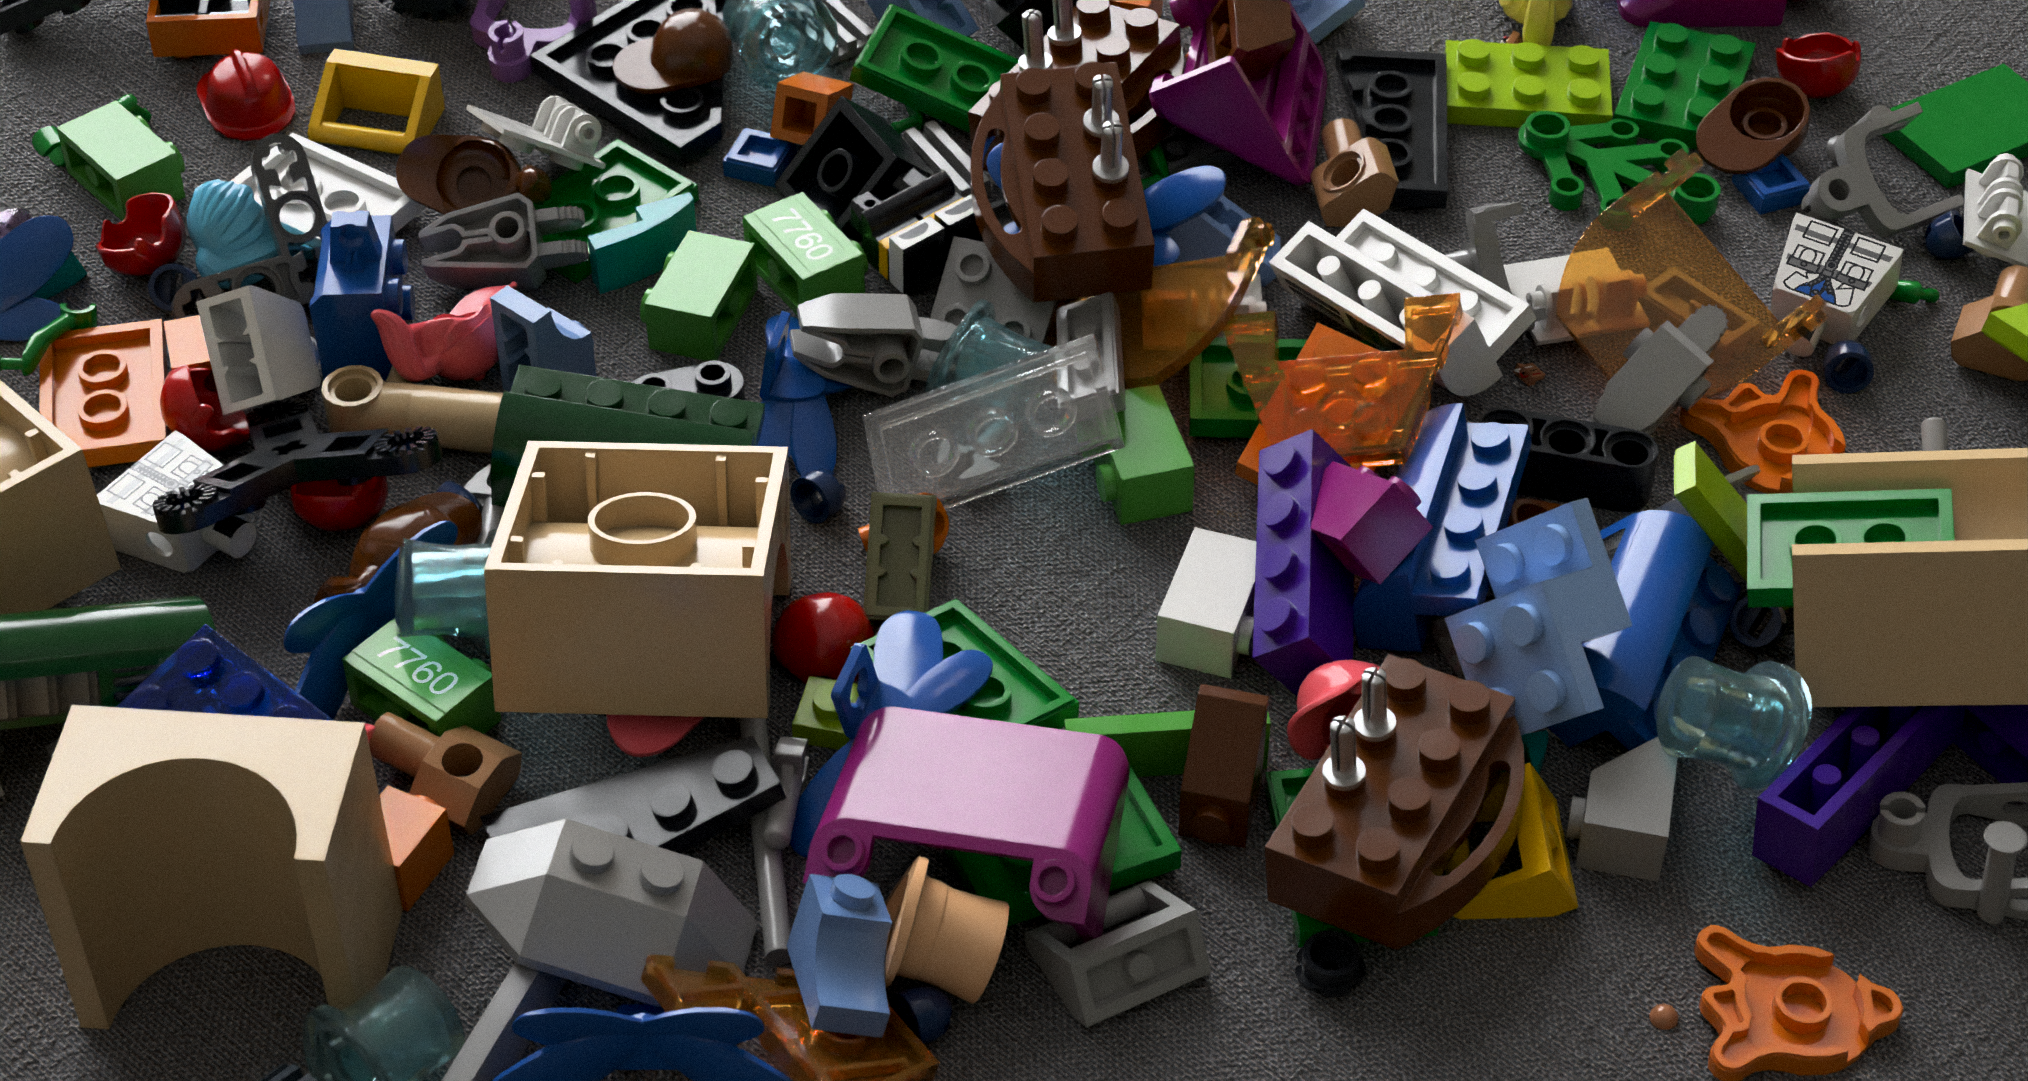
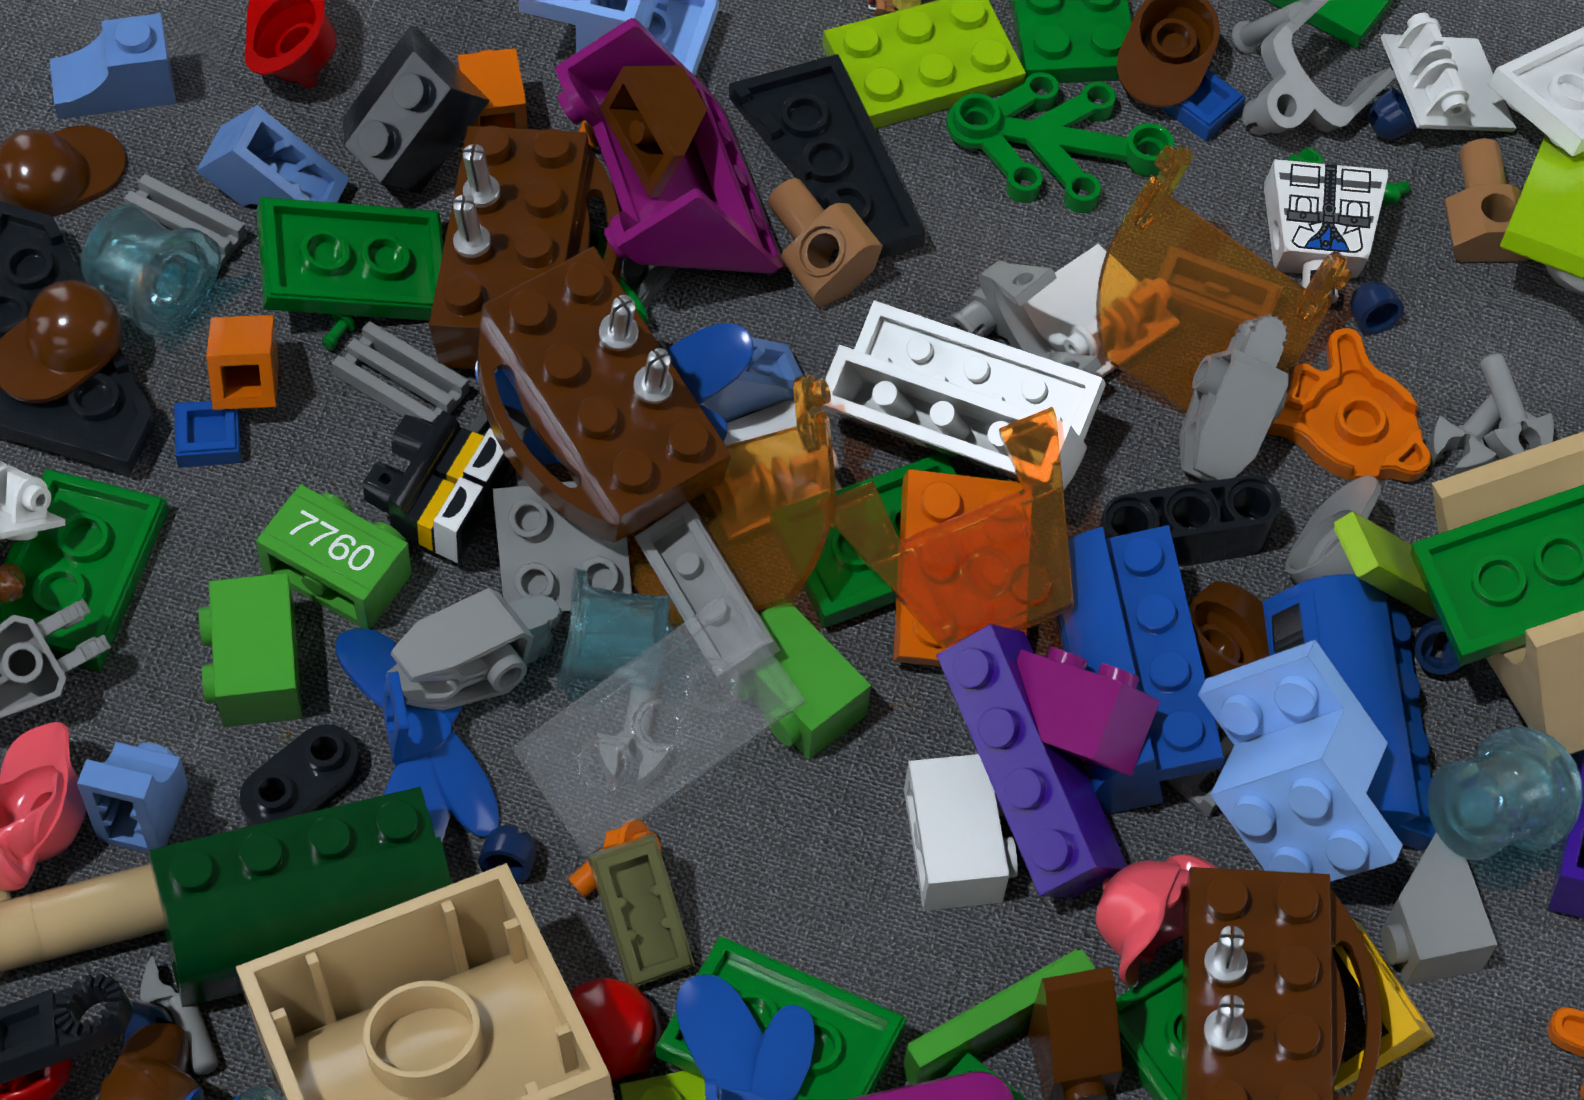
camera: 30 degrees left, 15 degrees up
(640, 248) = (166, 584): teal slope -> none
(847, 157) = (327, 425): black slope -> none
(1529, 373) = (1098, 423): nougat piece -> none

